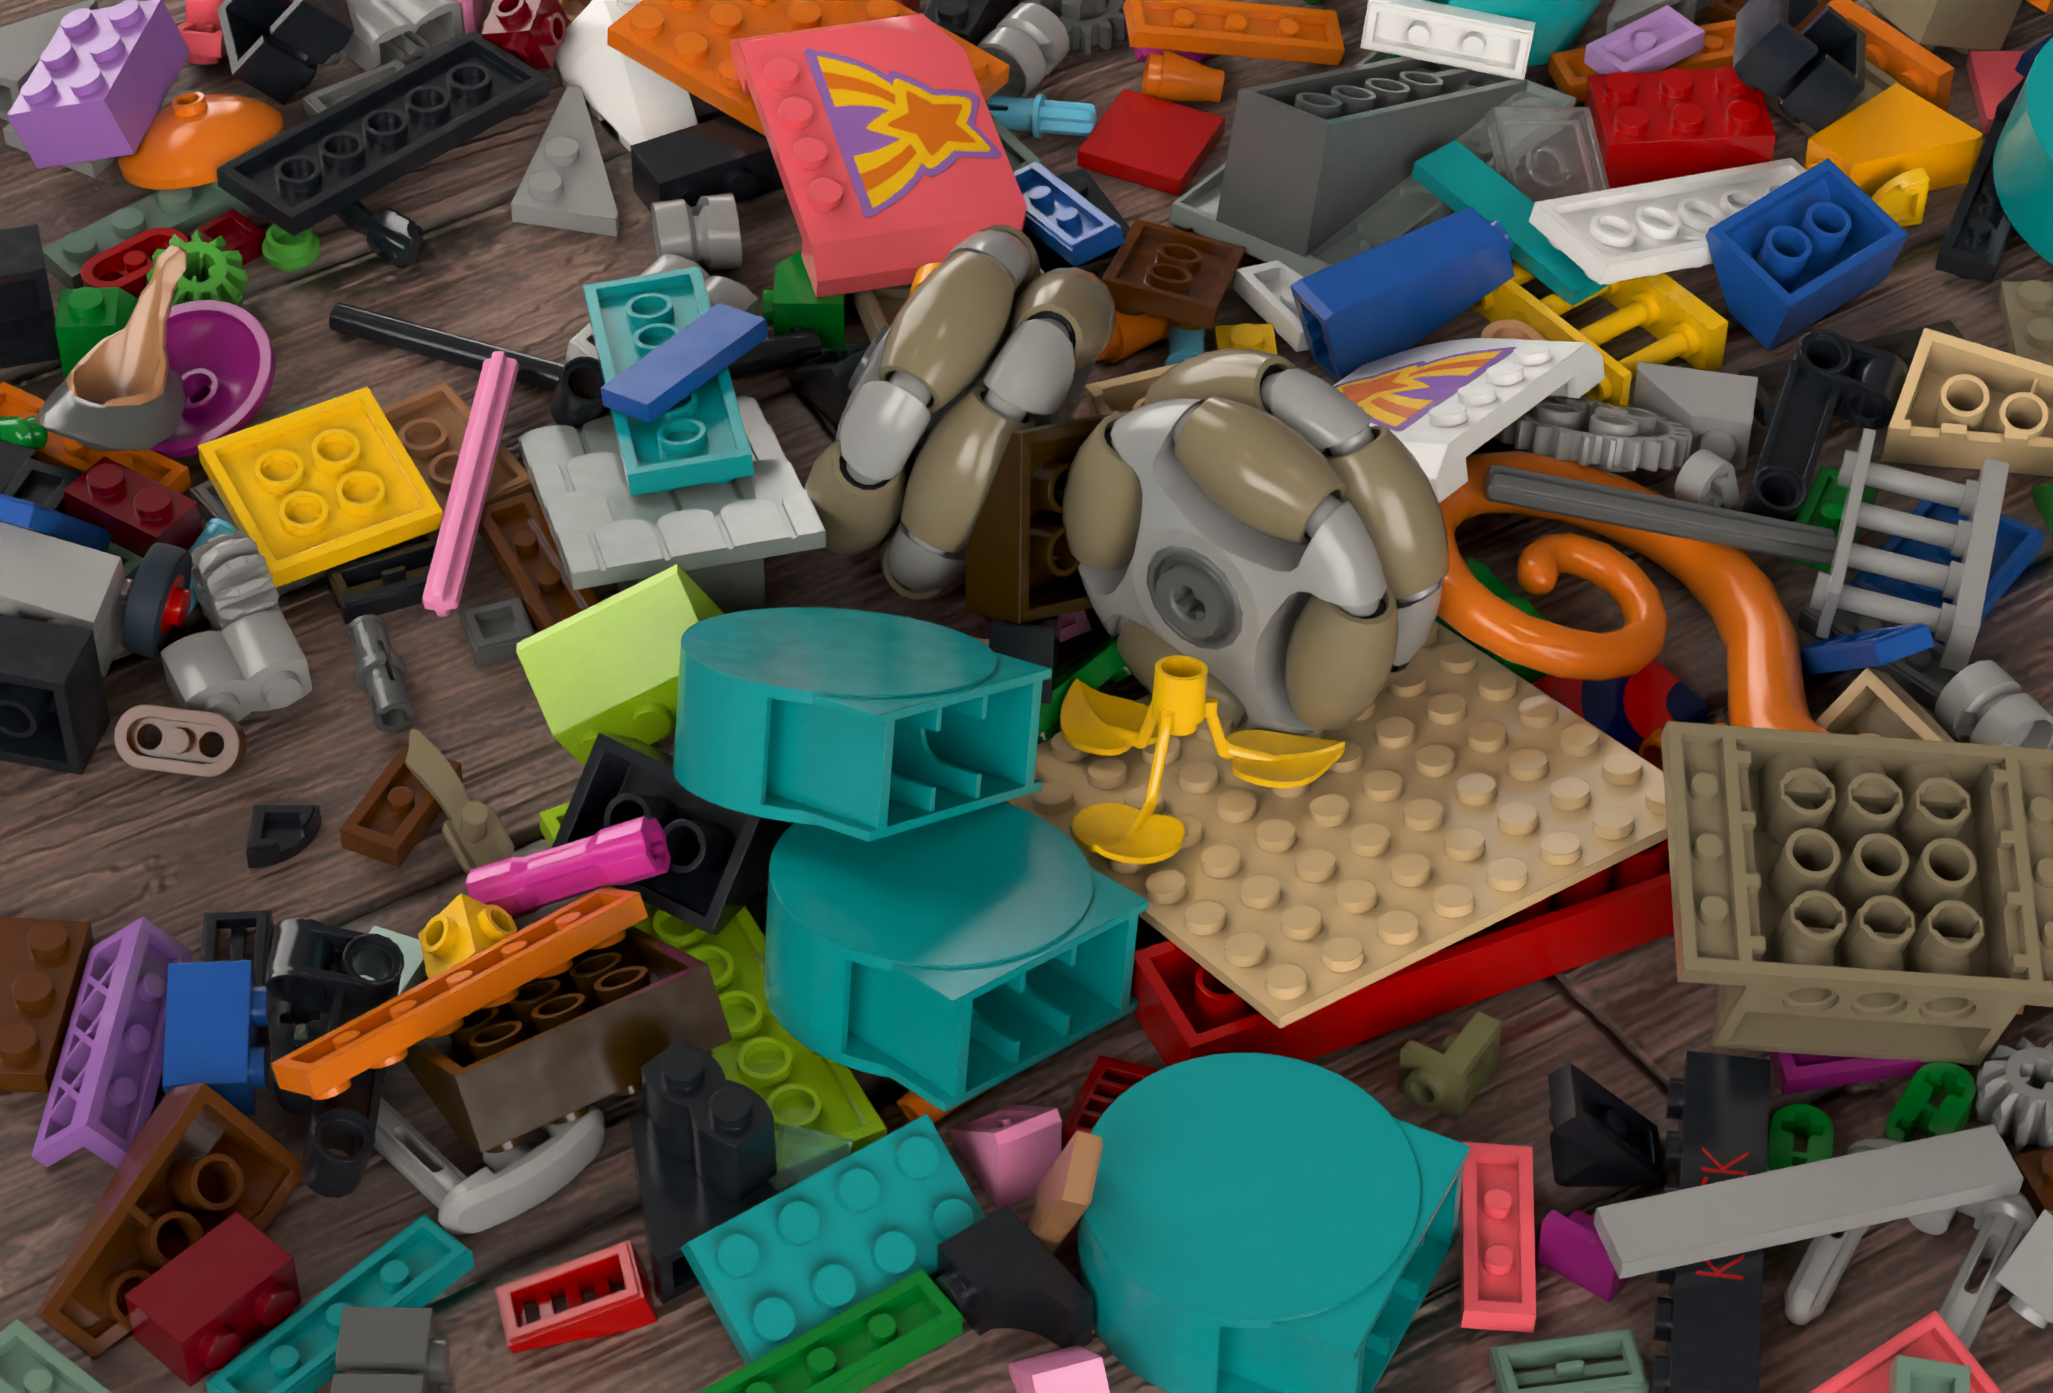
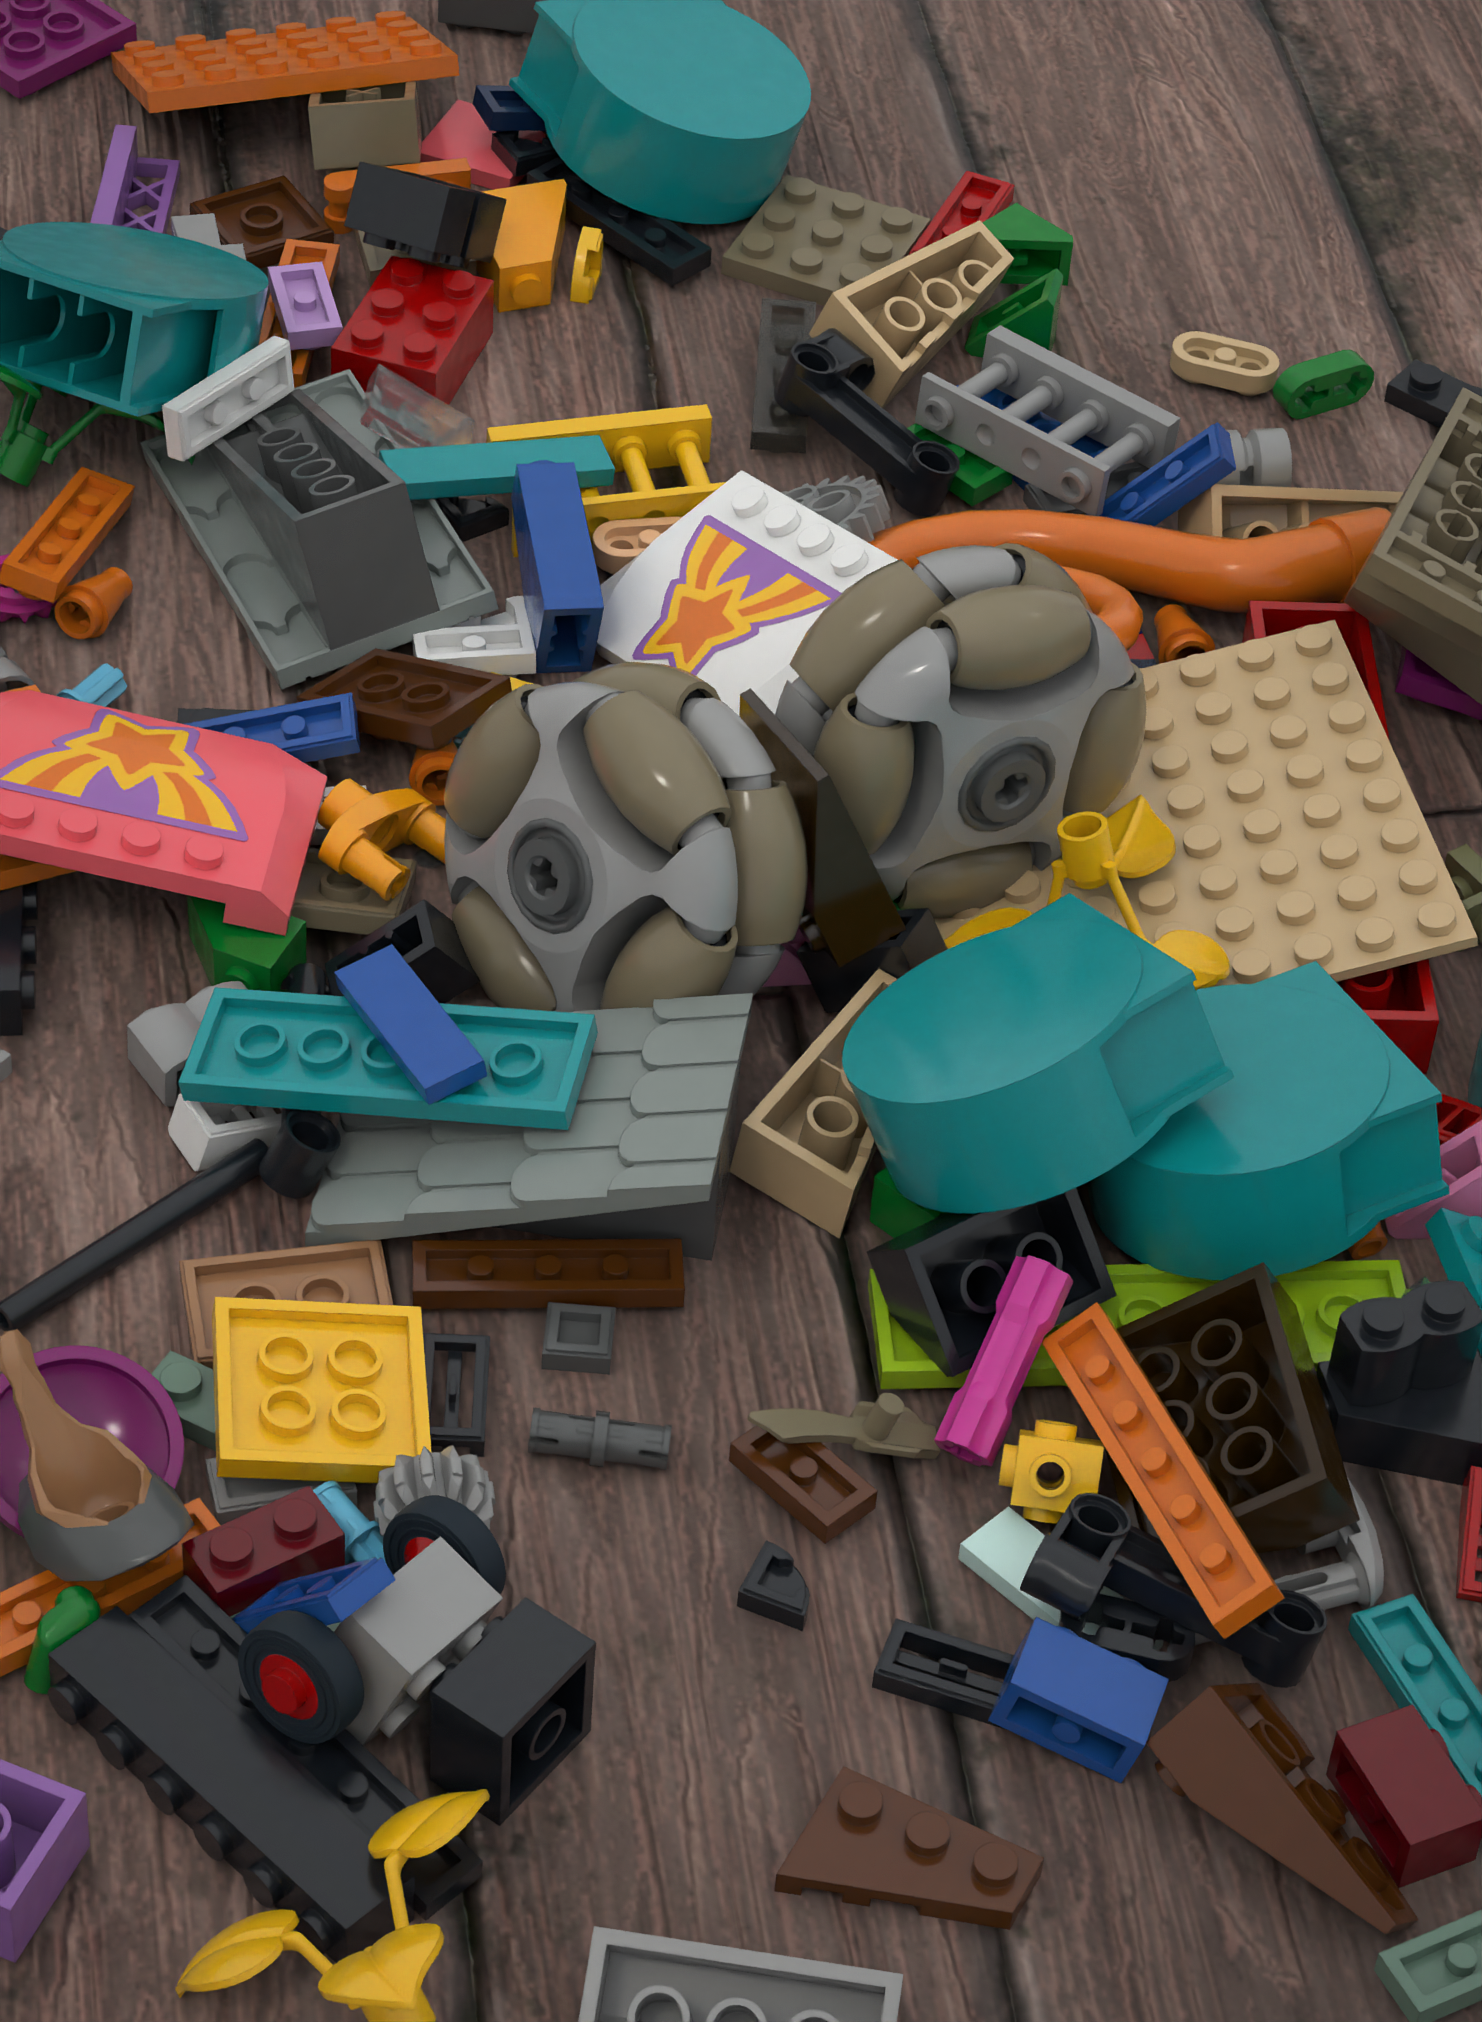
camera: 70 degrees left, 0 degrees up
(111, 1047) = (1036, 1771): medium lavender fence -> none
(182, 742) = (625, 1629): plate -> none
(240, 668) = (543, 1543): light grey brick -> none
(470, 485) = (376, 1277): bright pink axle -> none
(616, 663) = (794, 1216): lime slope -> none
(699, 233) = (98, 997): light grey wheel -> none
(1151, 142) = (163, 655): red tile -> none
(1654, 223) = (568, 371): white plate -> none
(1659, 514) = (972, 507): dark grey axle -> none
(1708, 403) = (793, 457): light grey slope -> none
(1708, 481) = (915, 492): light grey beam -> none
(1802, 253) = (658, 328): blue slope -> none

